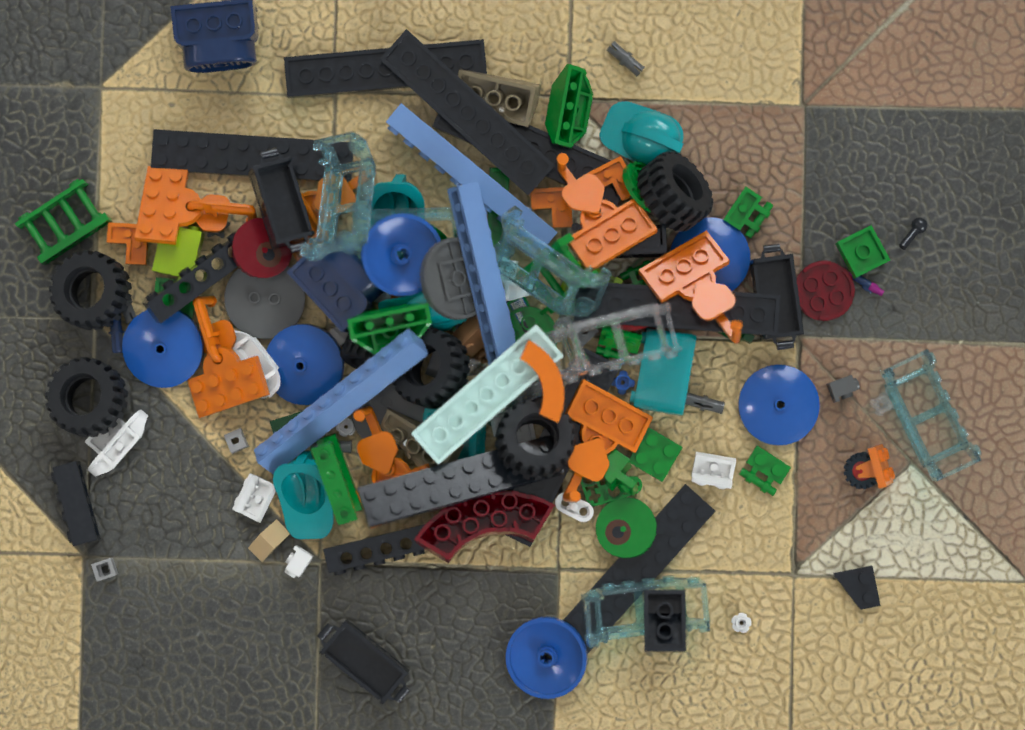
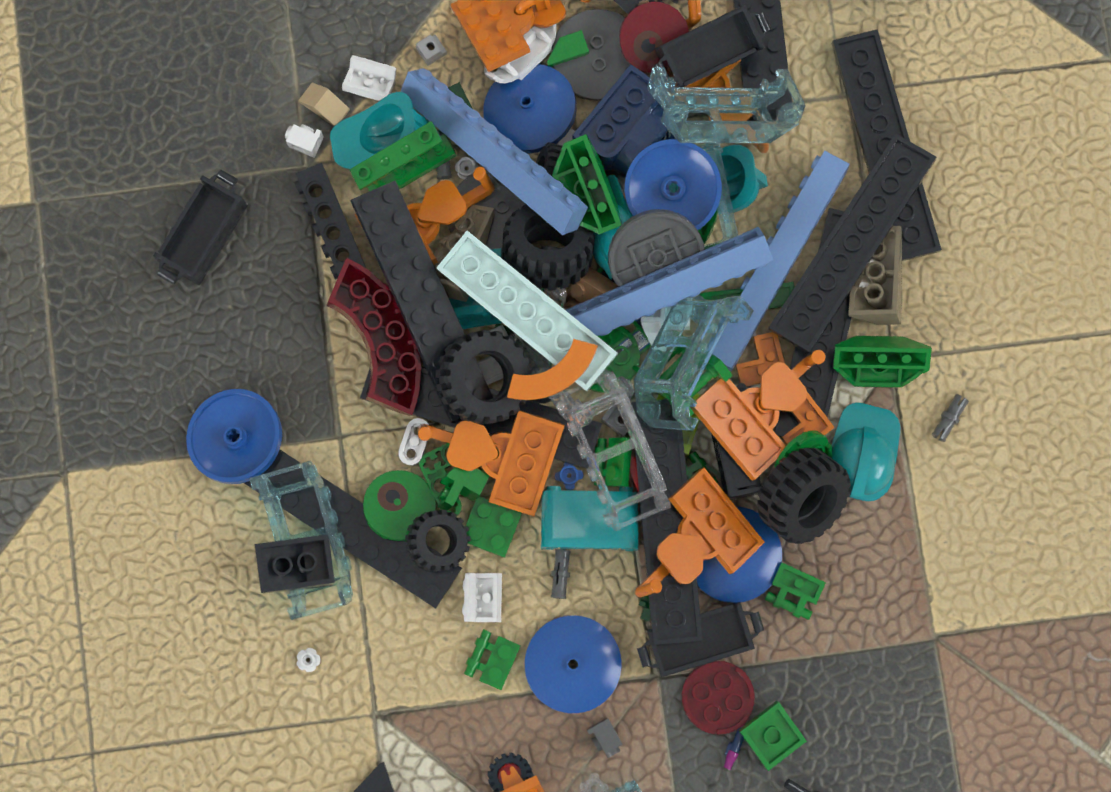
camera: 80 degrees right, 5 degrees down
(256, 322) = (568, 48): none -> green tile
(674, 488) = (457, 540): none -> black tyre

